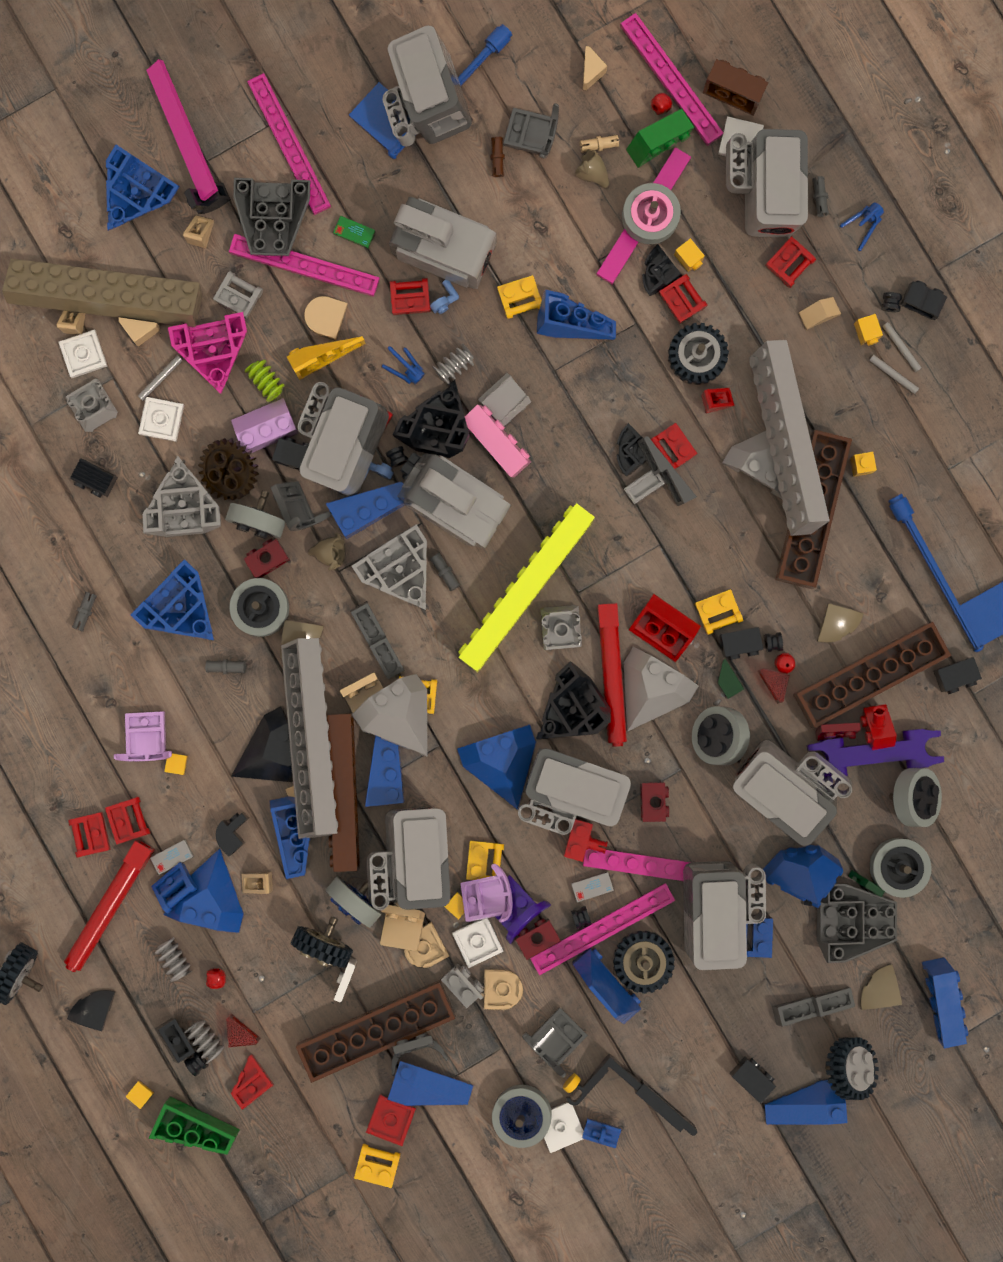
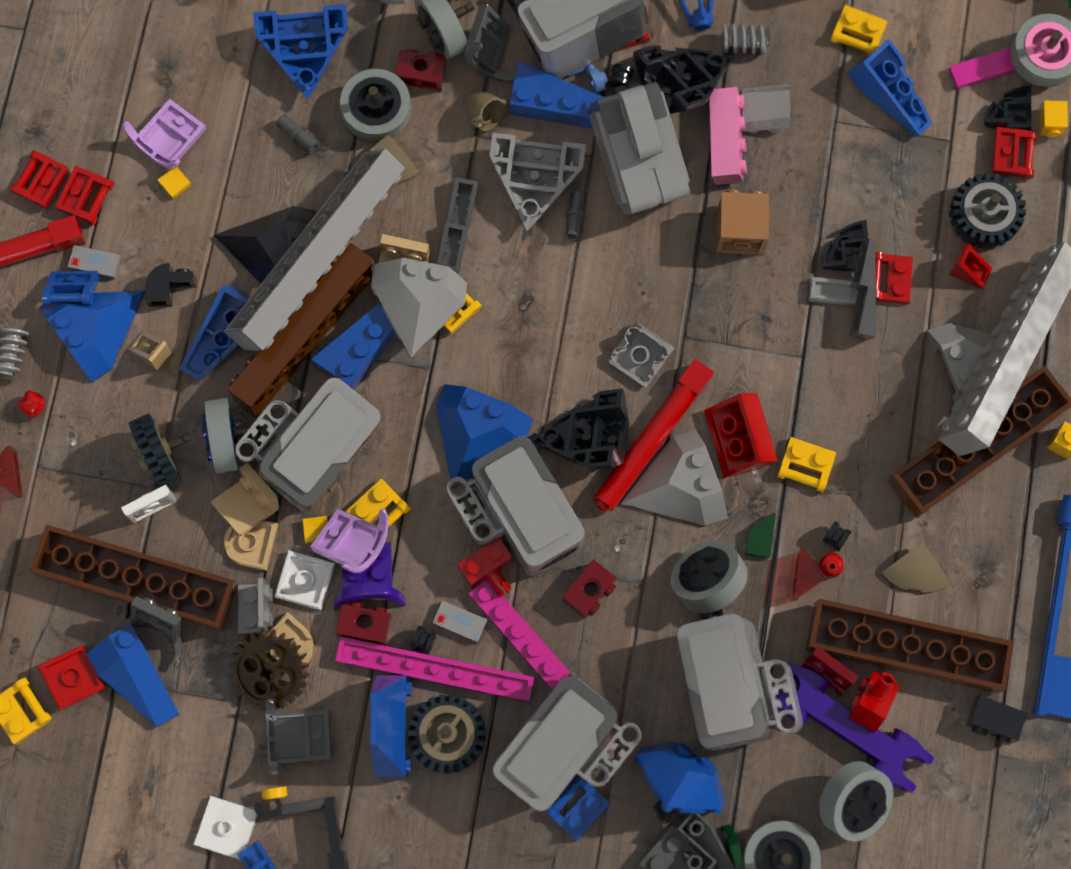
camera: 40 degrees right, 10 degrees down
(505, 1015) = (289, 663): none -> dark brown gear
(521, 1116) = (198, 781): wheel -> none
(526, 588) = (639, 287): neon yellow brick -> none
(554, 490) = (742, 222): none -> medium nougat brick
(741, 642) = (804, 510): black brick -> none

